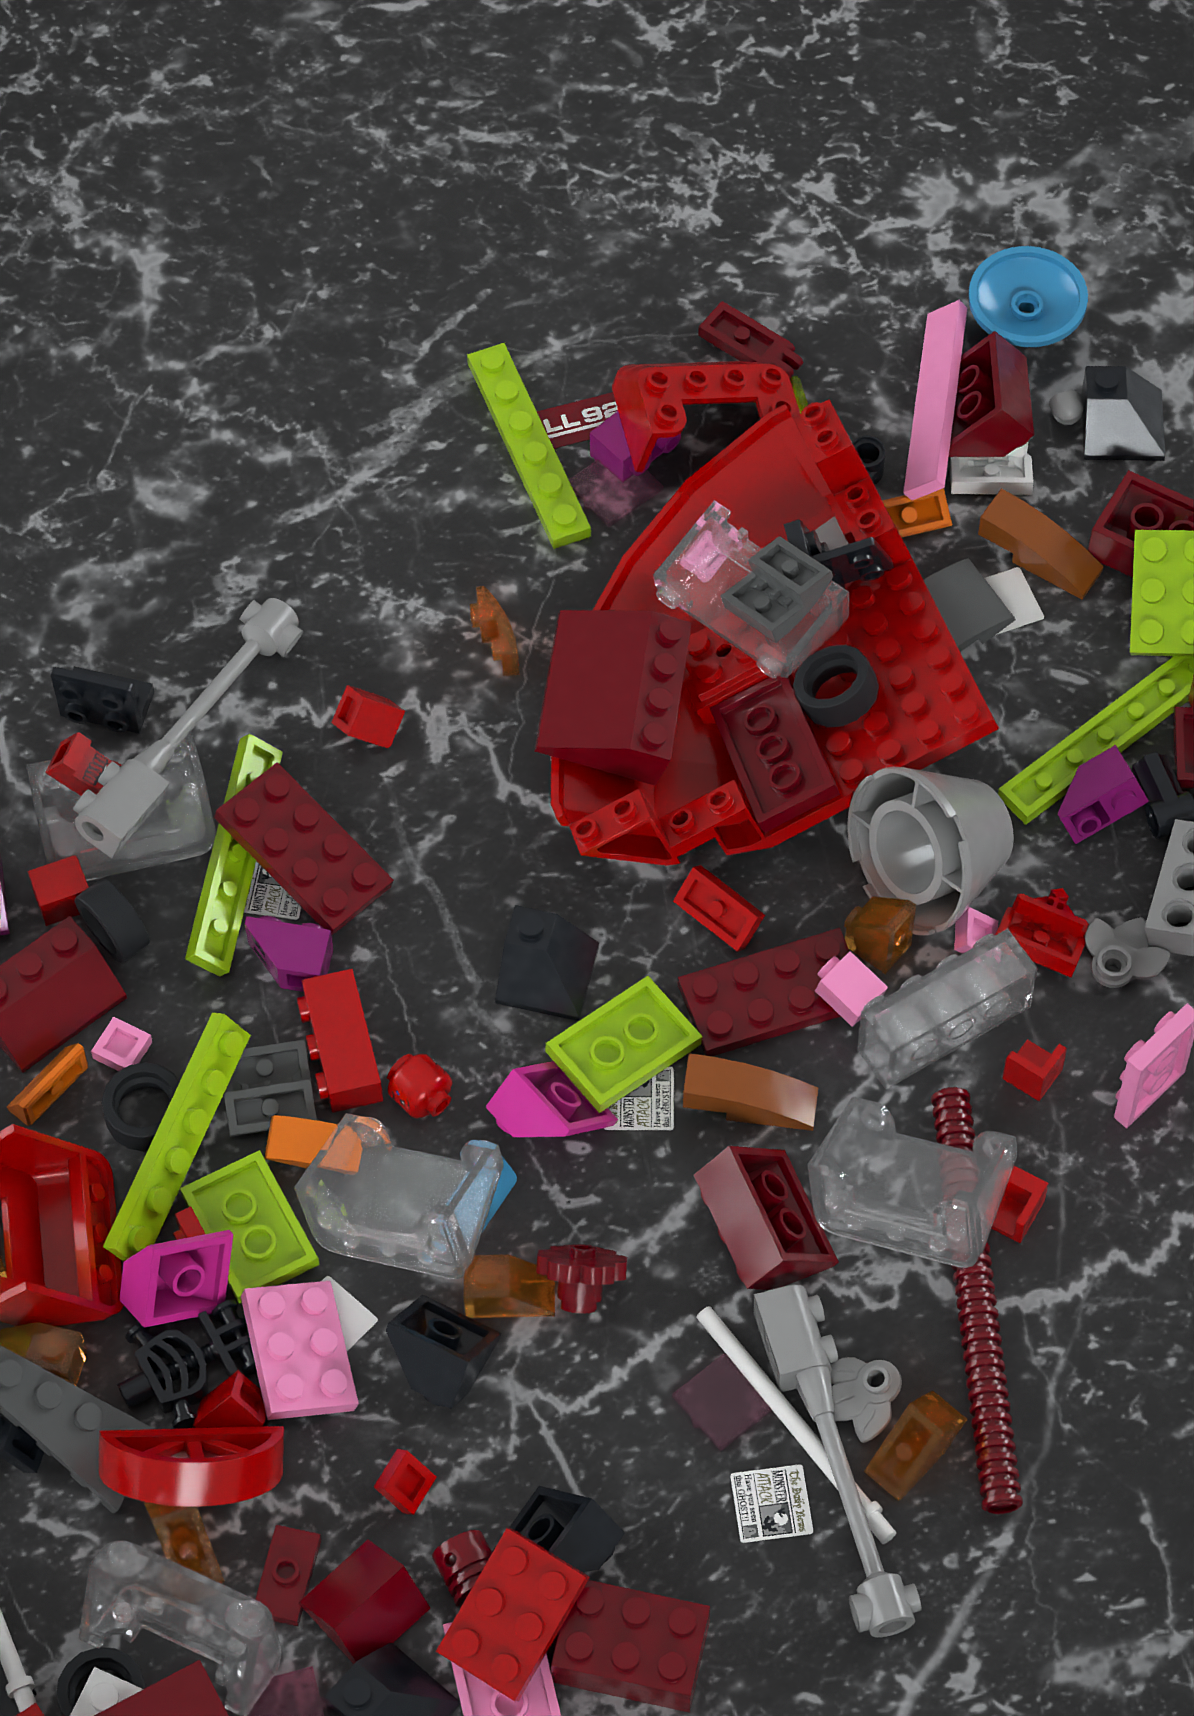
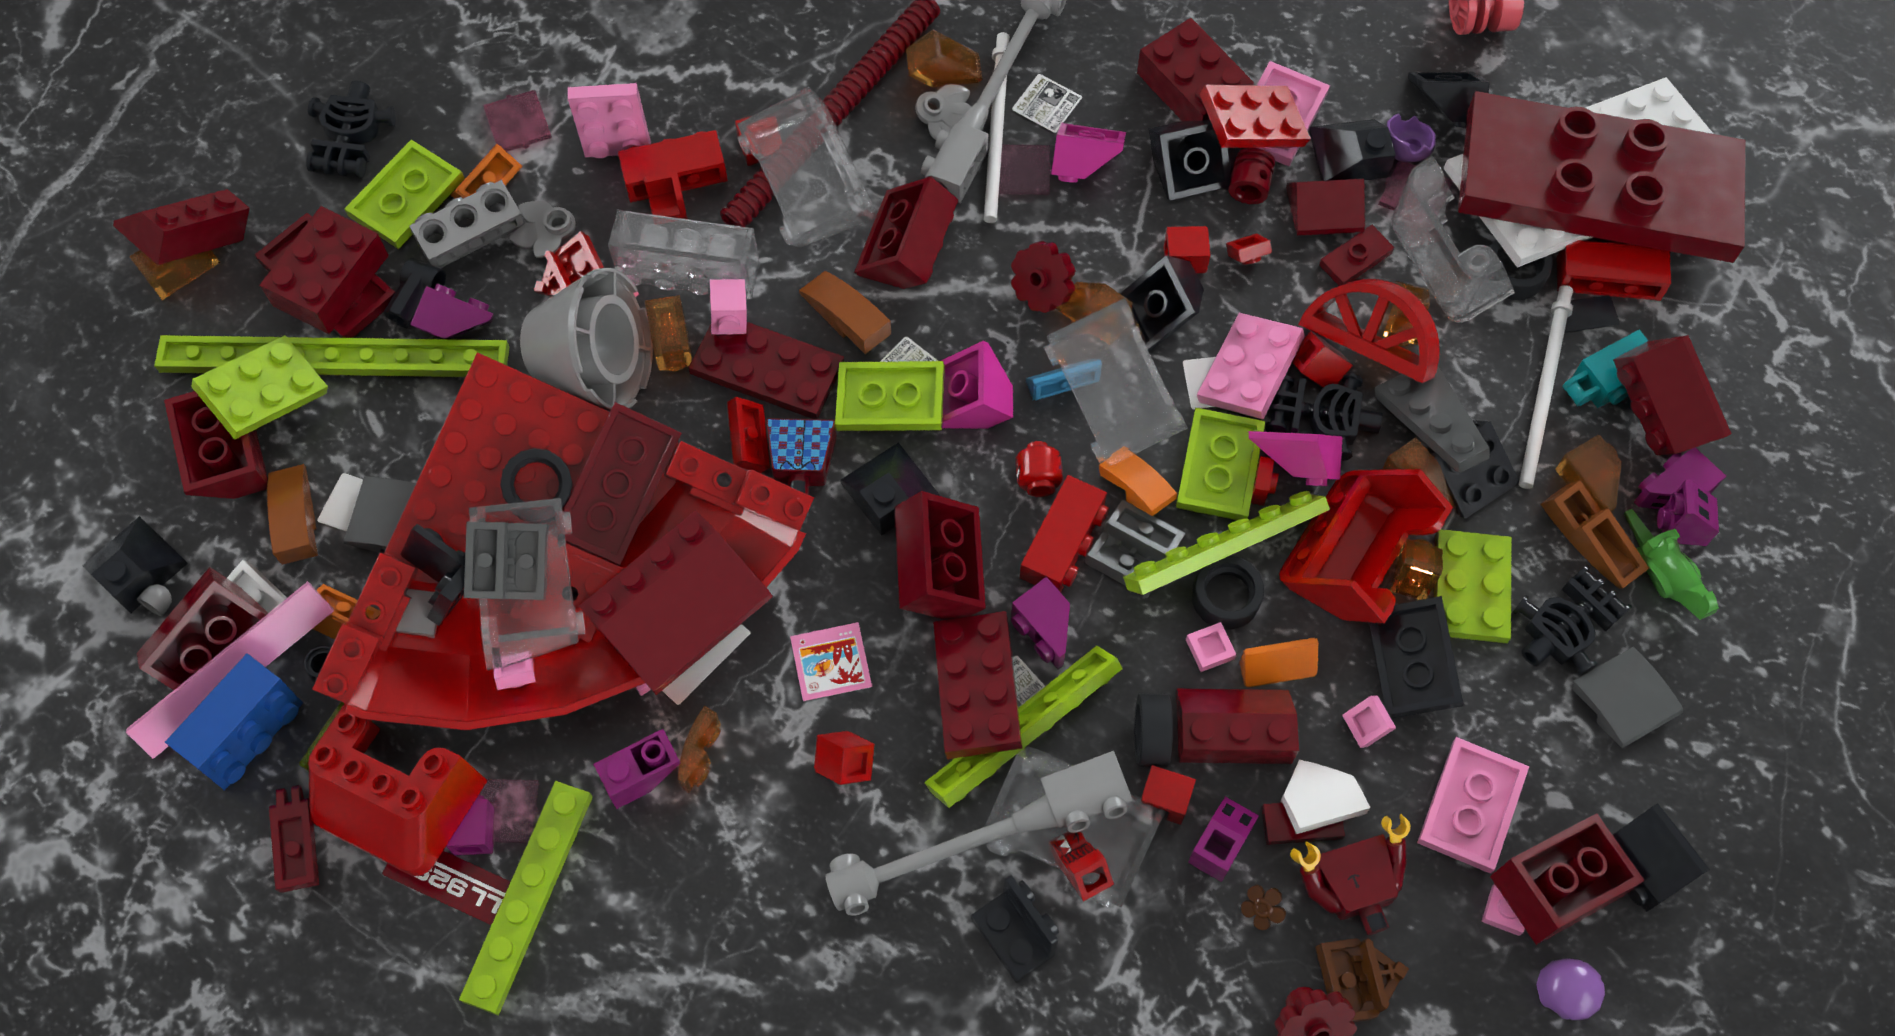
camera: 140 degrees left, 5 degrees up
(430, 915) = (939, 557): none -> dark red brick
(457, 792) = (830, 661): none -> sticker
(468, 1422) = (1189, 244): none -> red panel
(530, 570) = (637, 768): none -> magenta slope
(655, 926) = (801, 451): none -> torso
(672, 1462) = (1084, 150): none -> dark pink slope
(880, 364) = (235, 722): none -> blue brick
(1031, 282) = (63, 684): dark azure dish -> none
(1068, 1105) = (694, 157): none -> red brick

